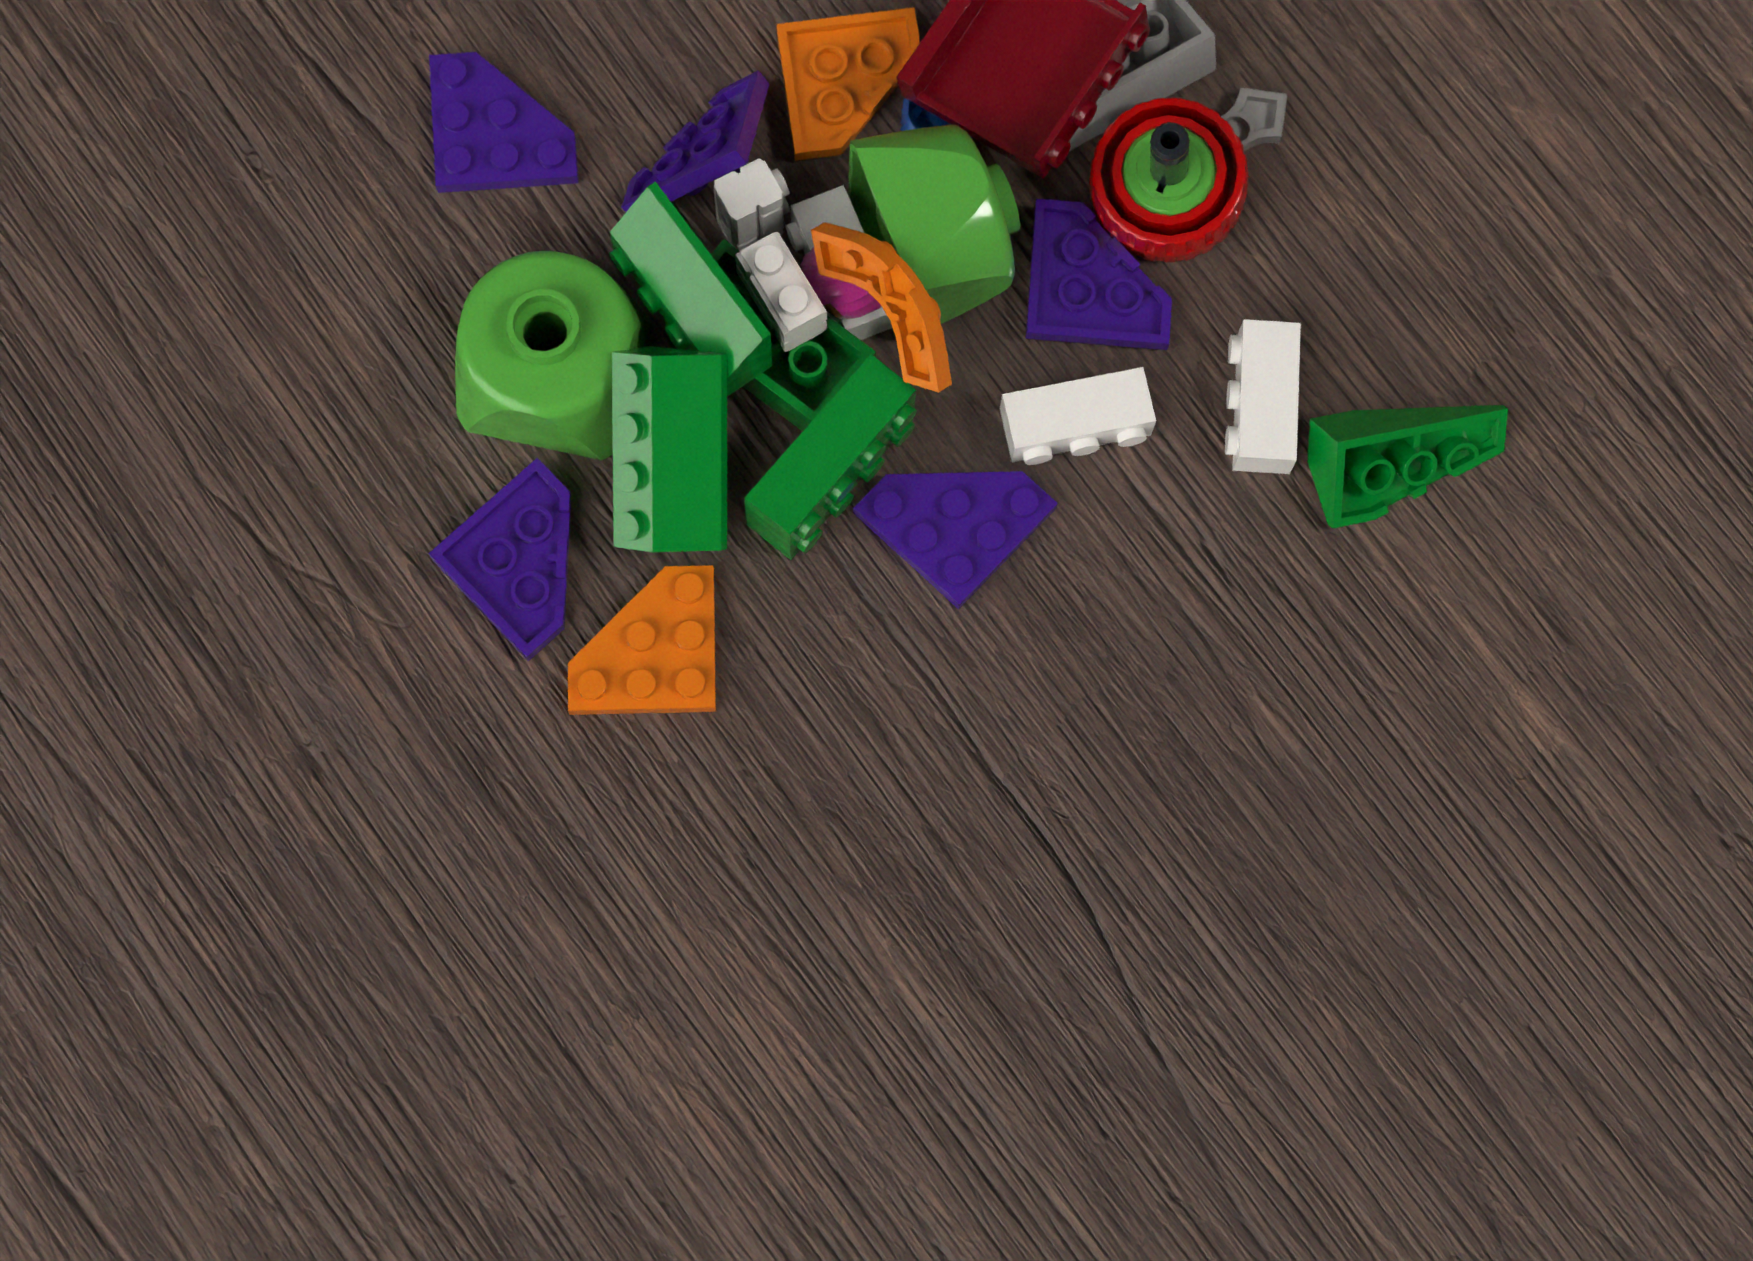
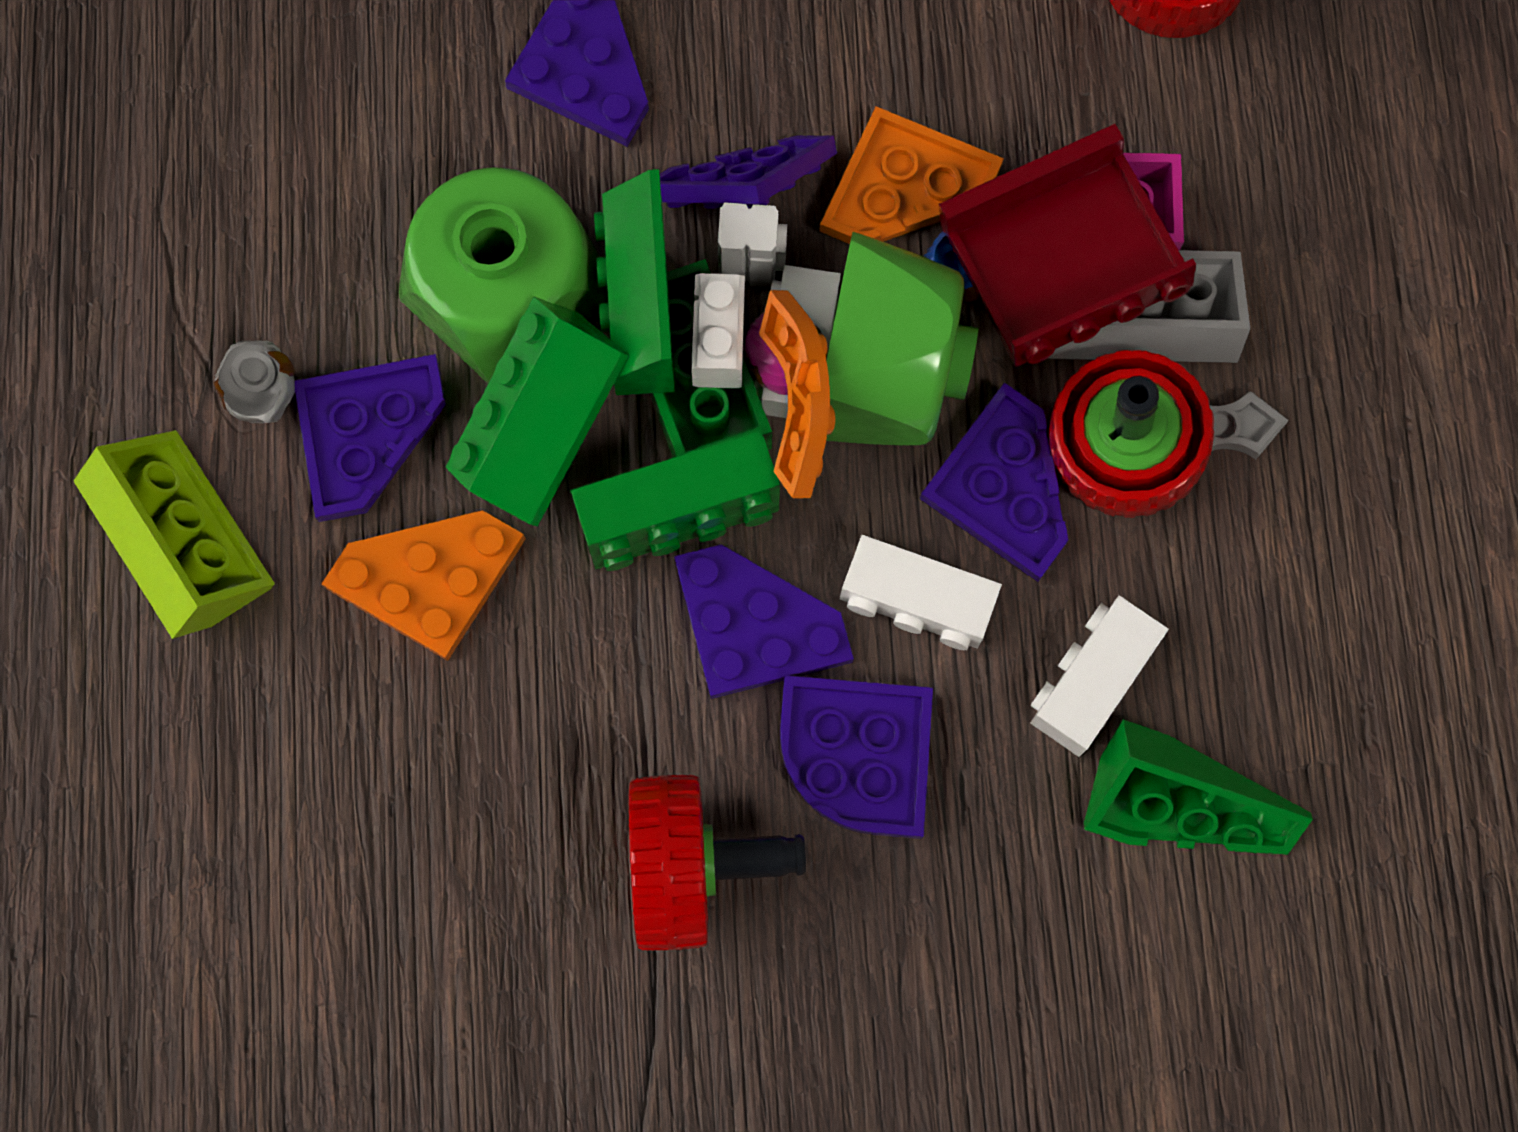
camera: 35 degrees right, 0 degrees up
(396, 572) = (255, 381): none -> light grey hair
(408, 744) = (172, 531): none -> lime slope
(1030, 749) = (679, 860): none -> red wheel
(1110, 576) = (859, 752): none -> dark purple plate

